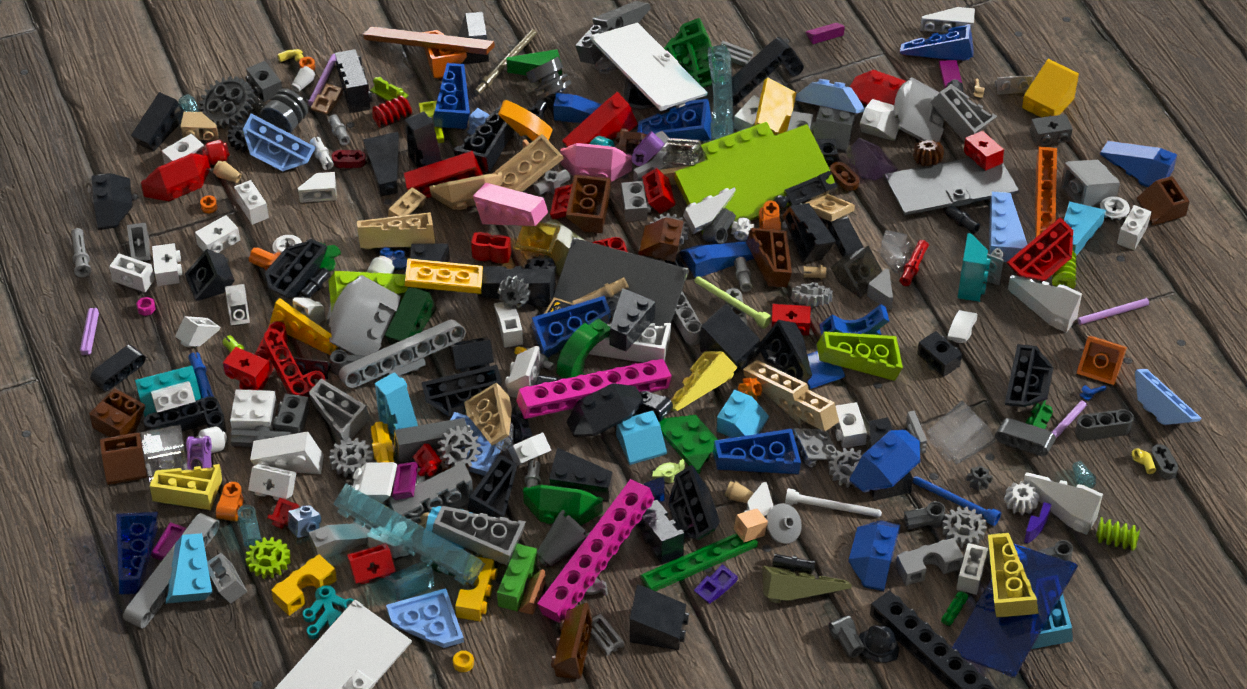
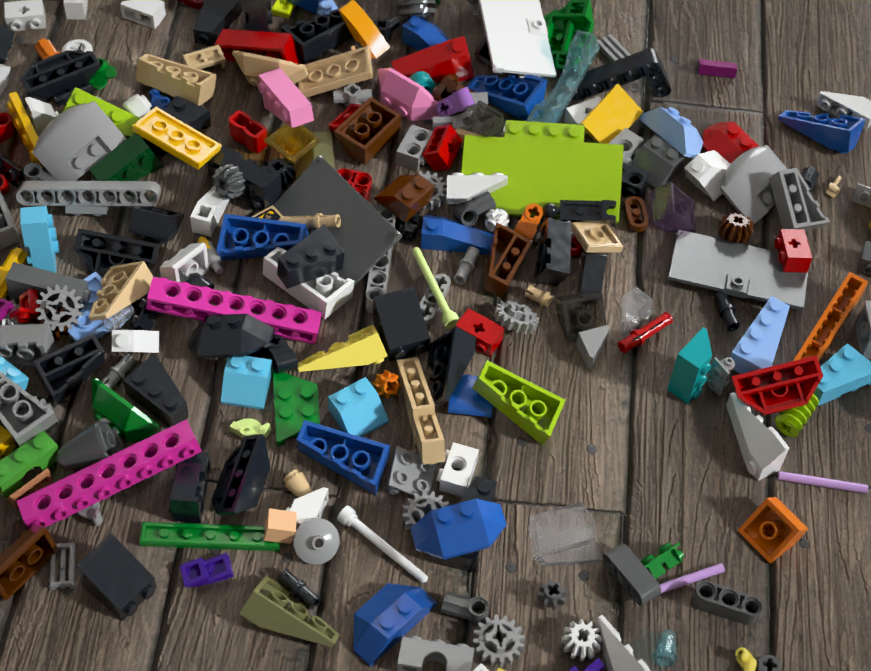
camera: 25 degrees right, 5 degrees up
(579, 346) = (247, 262): green arch -> none
(657, 488) = (222, 442): clear blue slope -> none
(866, 325) = (543, 375): blue arch -> none
(915, 429) = (521, 511): light grey tile -> none
(939, 353) = (604, 451): black brick -> none
(949, 71) = (816, 157): magenta tile -> none
(962, 326) = (647, 421): white slope -> none
(991, 516) = (536, 643): blue piece -> none
(1029, 377) = (674, 512): black wedge -> none
(1088, 393) = (735, 559): blue hand -> none
(1161, 400) = (810, 609): light blue wedge -> none

